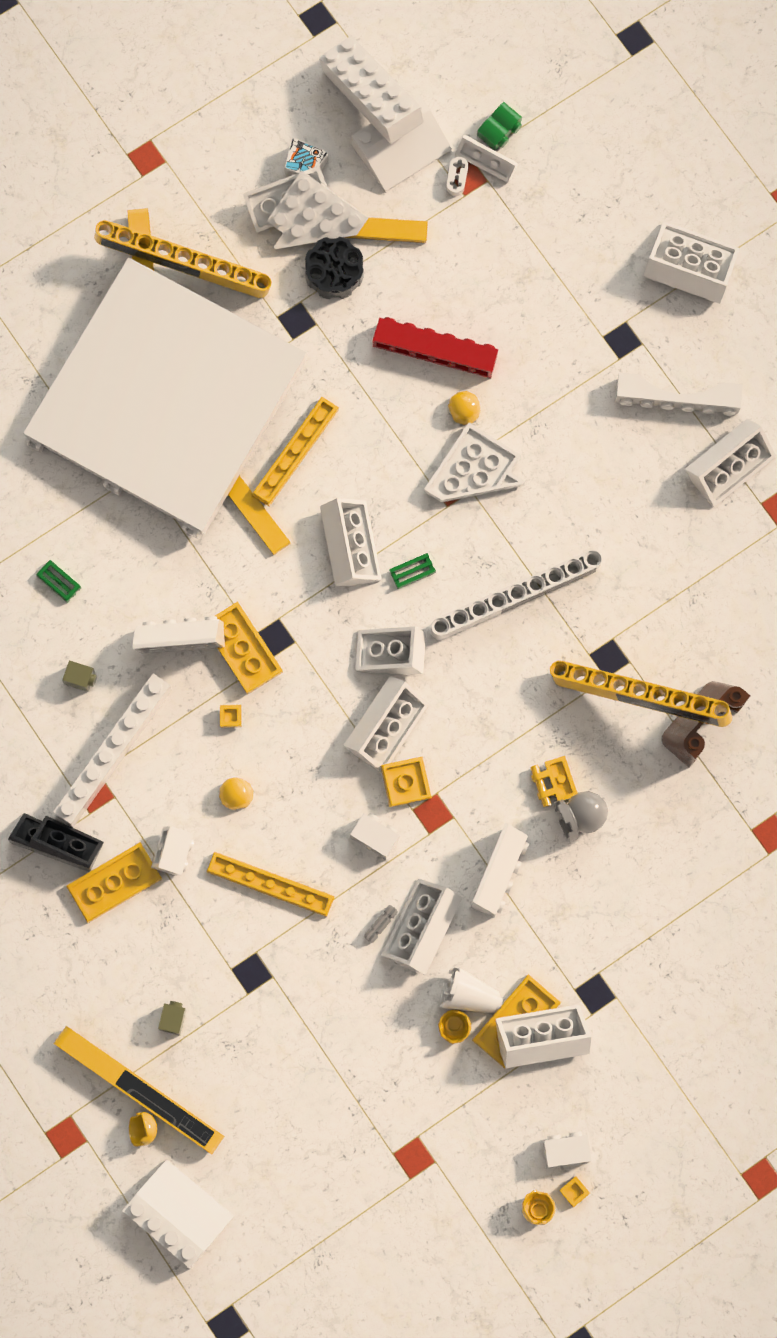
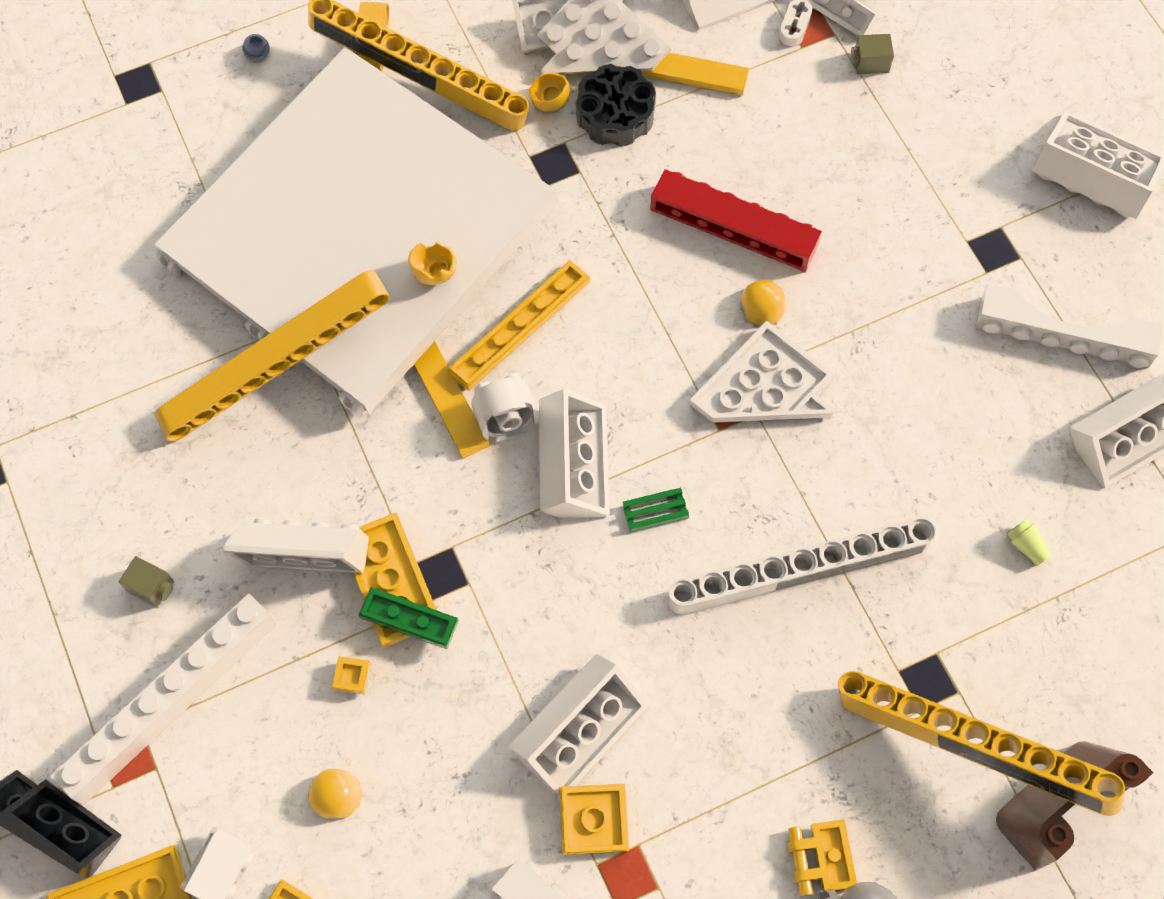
camera: 15 degrees right, 10 degrees down
(54, 259) = (255, 47): none -> sand blue plate
(71, 592) = (169, 465): green tile -> none
(130, 506) = (272, 355): none -> yellow beam
(231, 422) = (432, 264): none -> yellow hair
(261, 672) = (408, 618): none -> green tile
(283, 264) = (549, 92): none -> yellow hair
(297, 516) = (504, 408): none -> white brick
(391, 650) = (605, 617): white slope -> none
(517, 196) = (873, 53): none -> olive brick
(664, 552) = (1029, 541): none -> yellowish green cone

